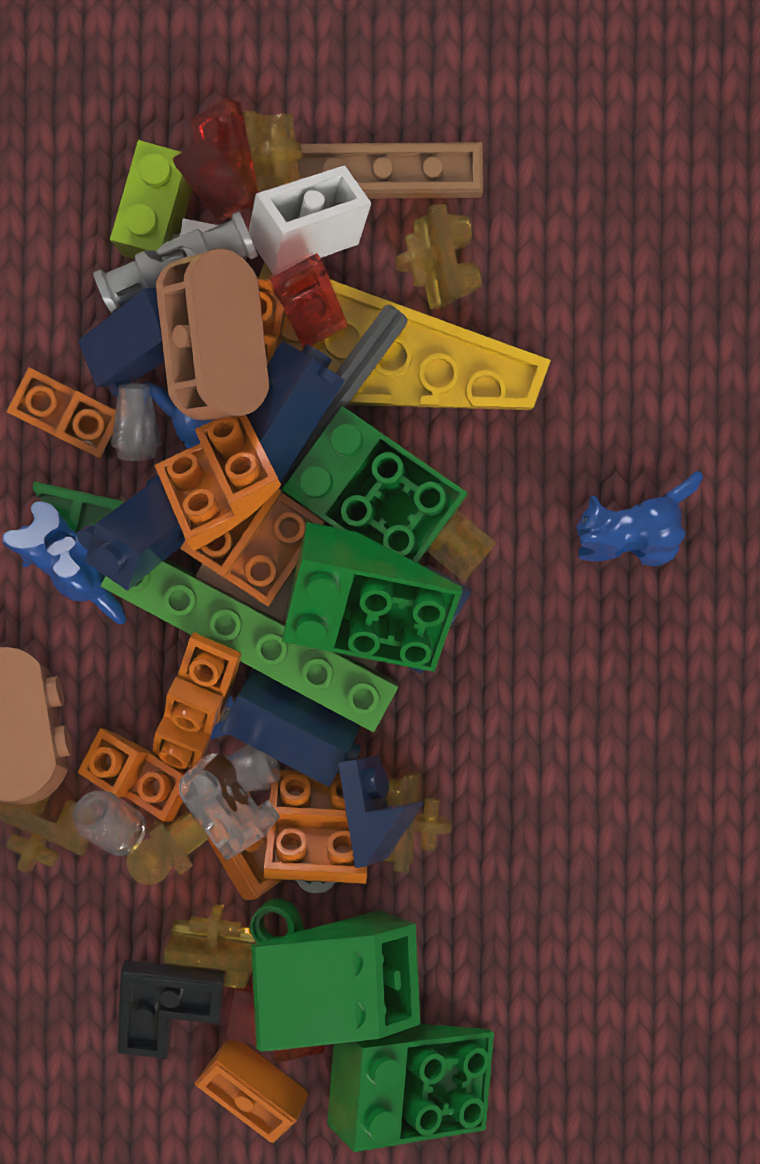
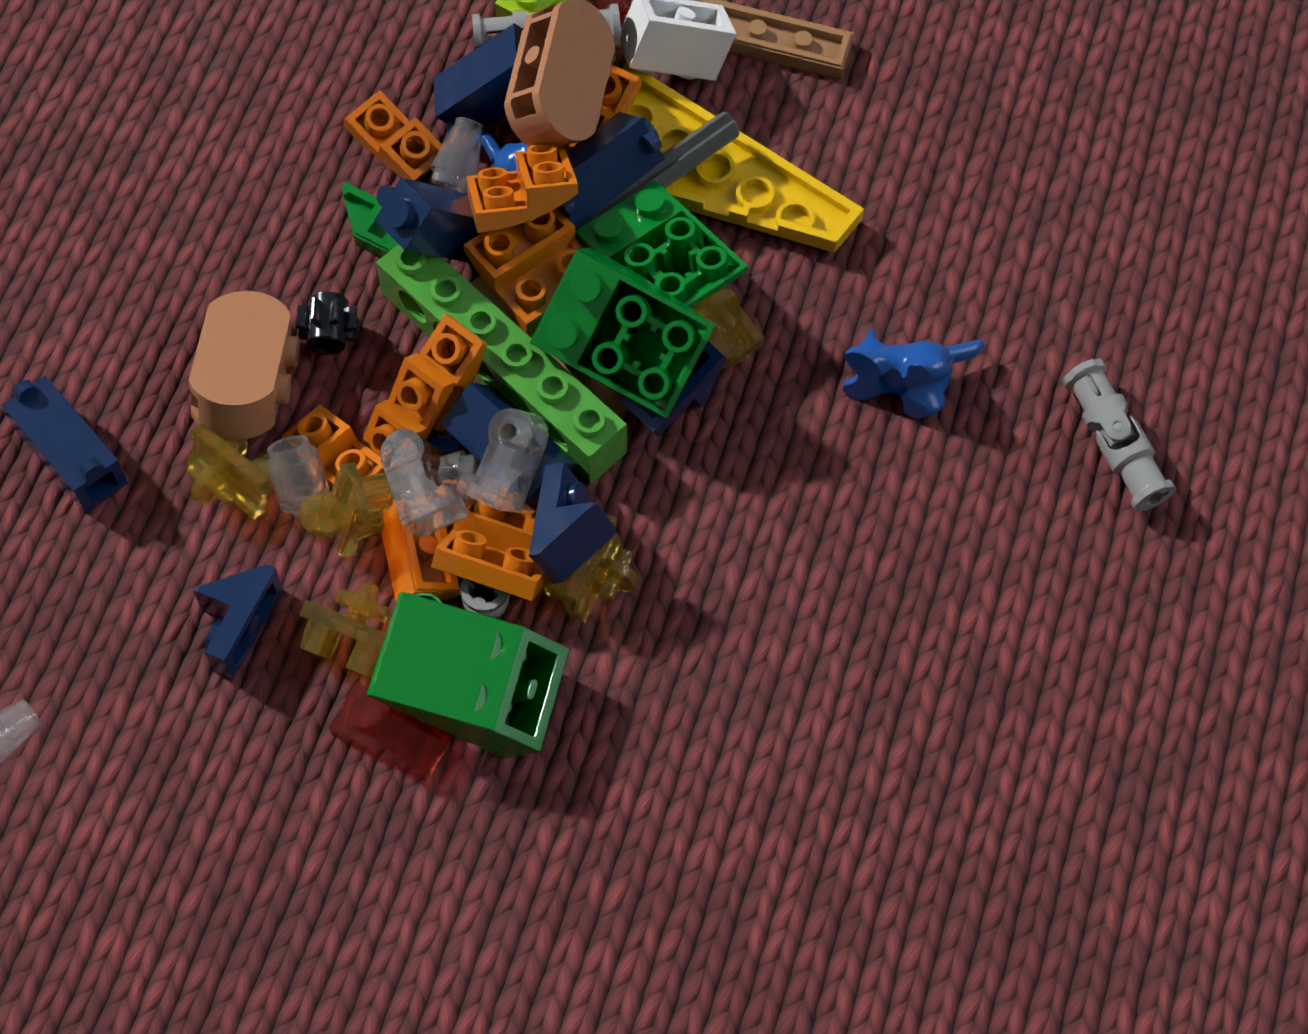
camera: 15 degrees right, 25 degrees down
(57, 553) = (352, 244): blue animal -> none
(76, 649) = (327, 323): none -> black gear
(105, 957) = (244, 606): none -> dark blue slope
(157, 994) = (271, 656): black tile -> none
(253, 1089) = (333, 795): orange slope -> none
(303, 770) = (509, 461): none -> clear leg
(308, 299) = (654, 81): clear red slope -> none
(410, 1086) = (508, 826): green slope -> none
(434, 259) = (779, 104): clear yellow hips -> none

